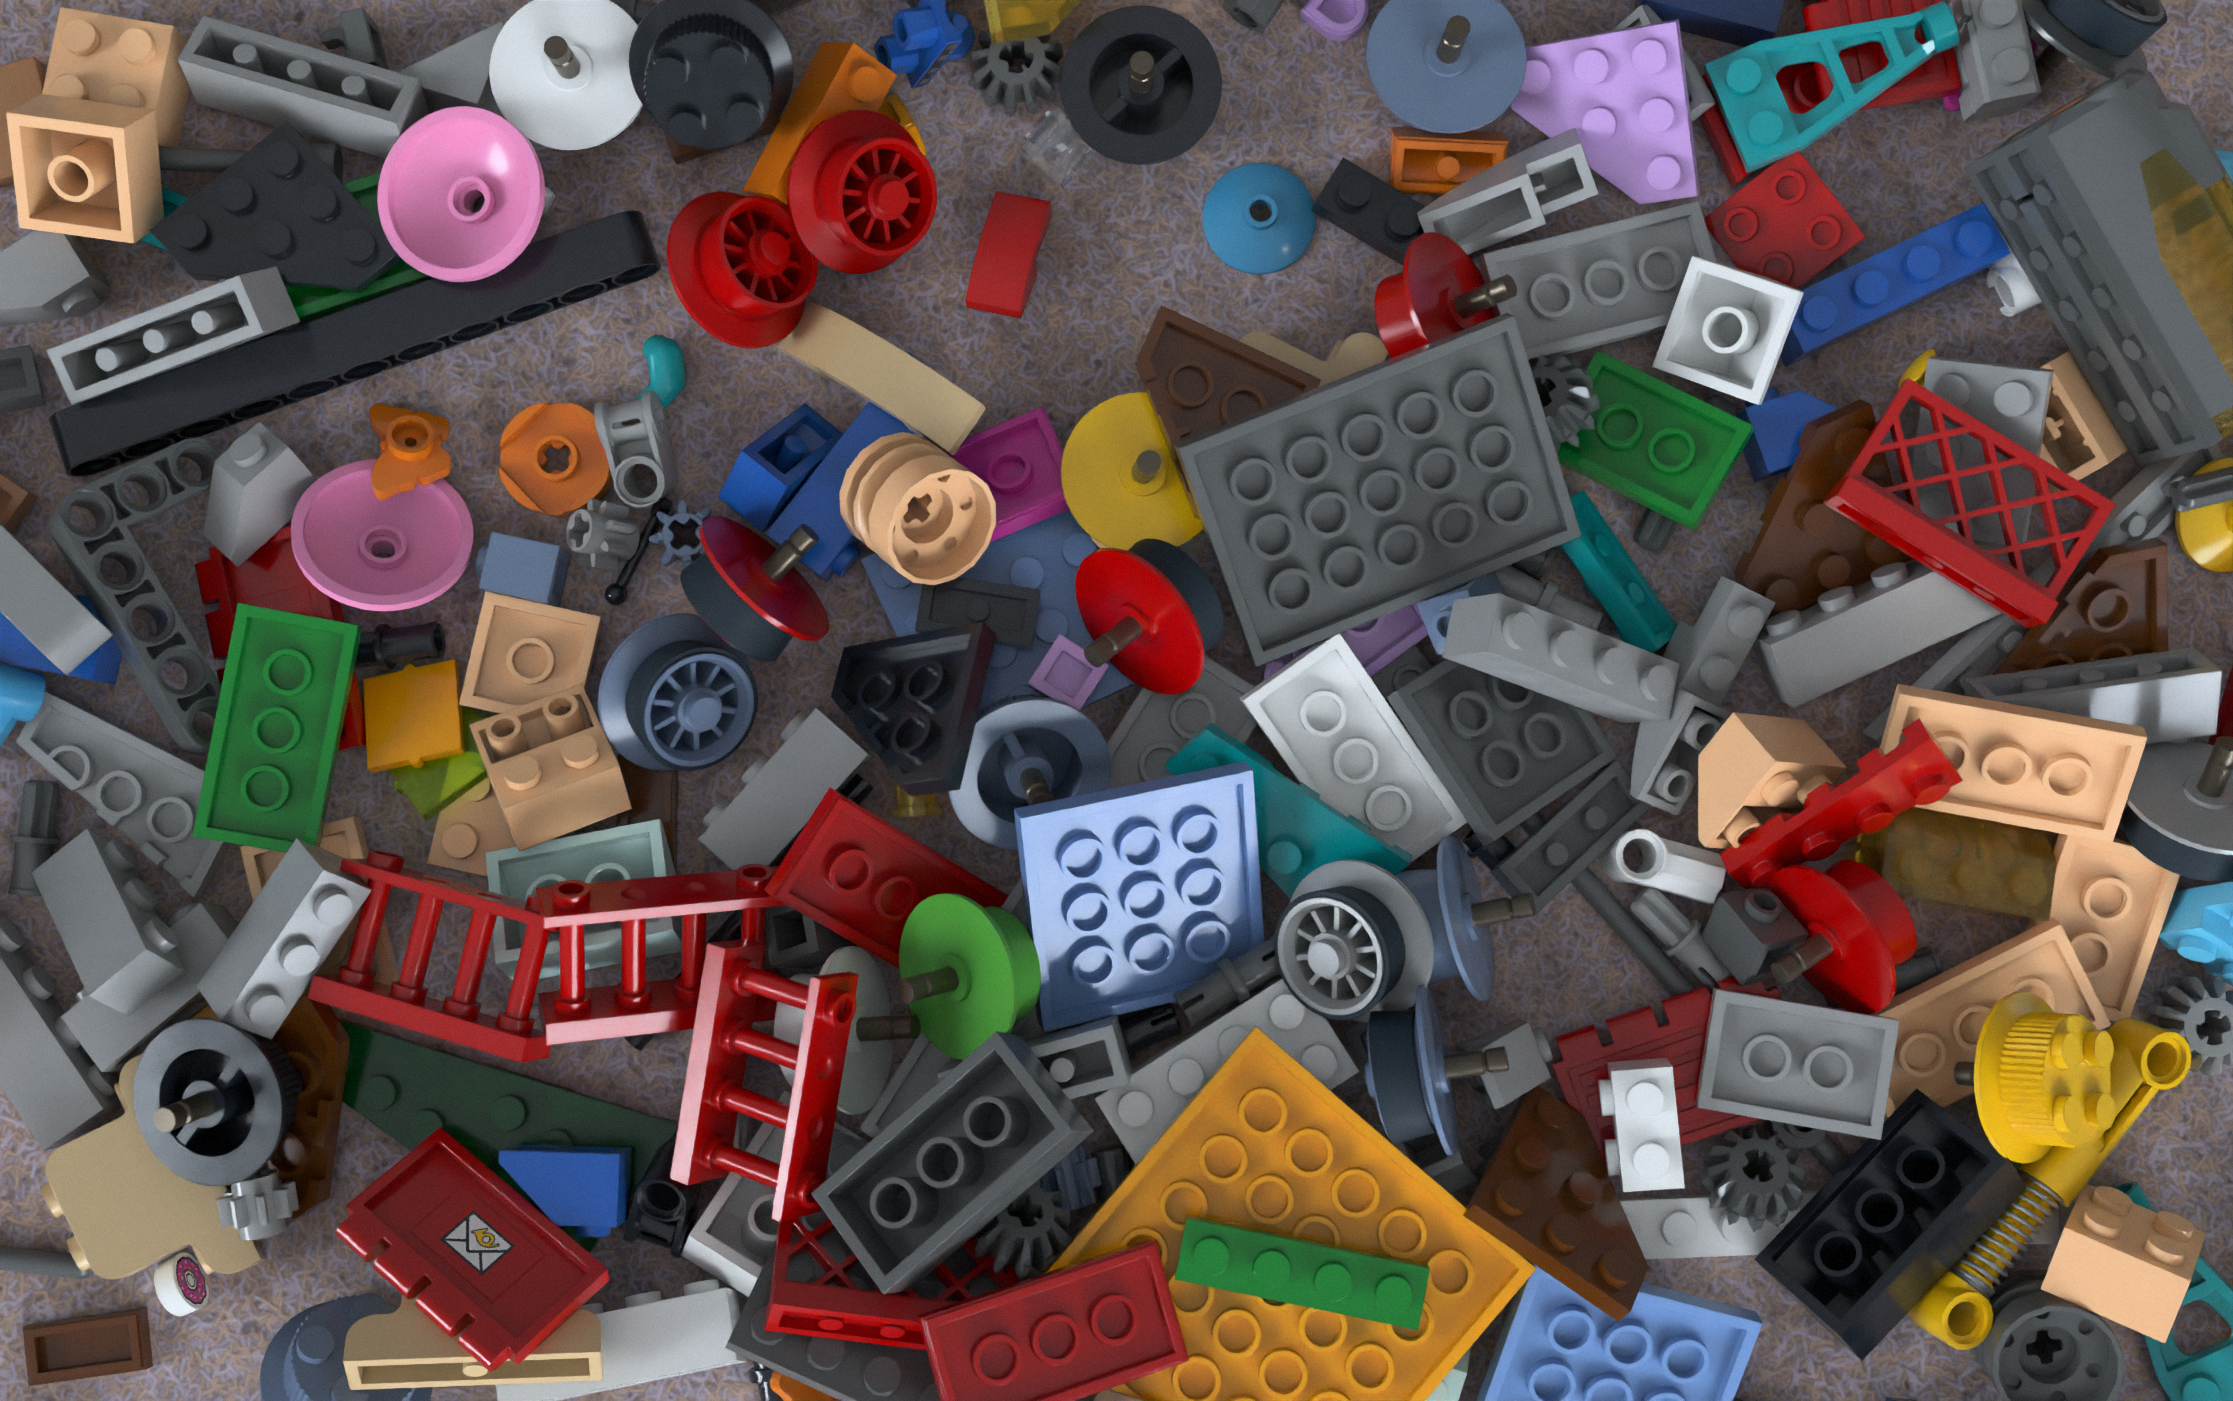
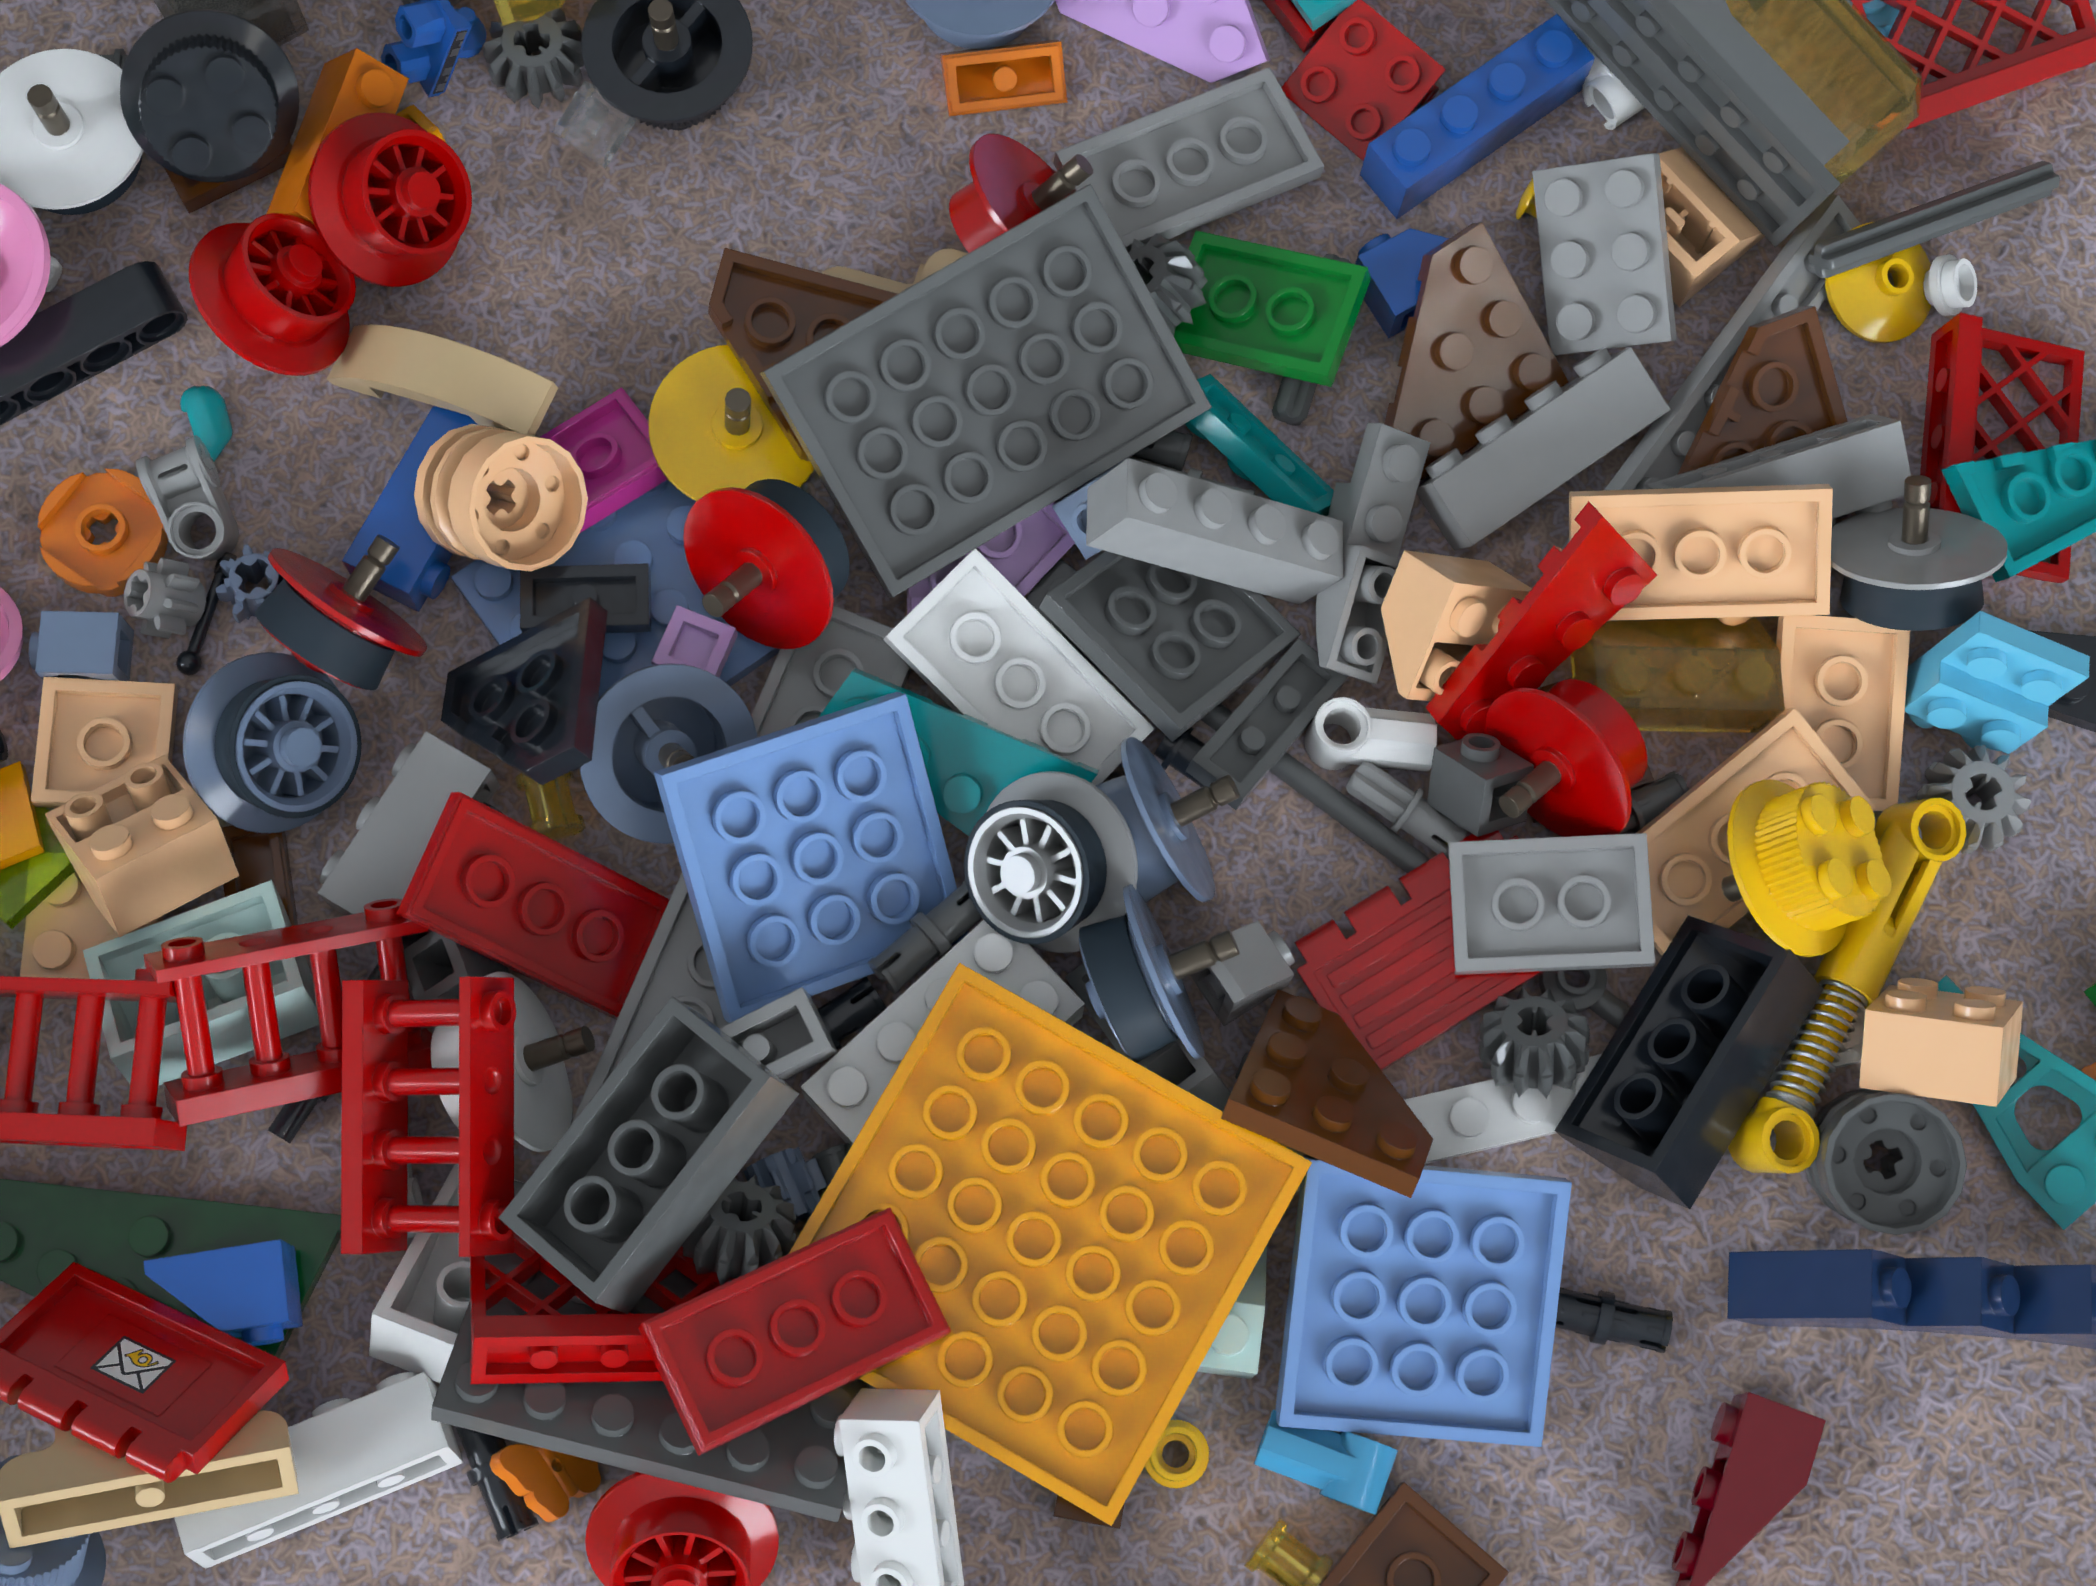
camera: 15 degrees left, 10 degrees down
(662, 1207) = (340, 1302): black piece -> none
(778, 466) = (340, 494): blue slope -> none
(966, 971) = (627, 957): bright green piece -> none
(1007, 254) = (556, 241): red slope -> none
(1252, 244) = (824, 188): dark azure dish -> none
(1302, 1272) = (1057, 1212): green plate -> none
(1370, 210) = (930, 133): black plate -> none
(1512, 194) = (1077, 91): light grey slope -> none
(1644, 1123) = (1403, 1000): white brick -> none
(1727, 329) = (1321, 180): white slope -> none
(1955, 554) = (1593, 351): red fence -> none

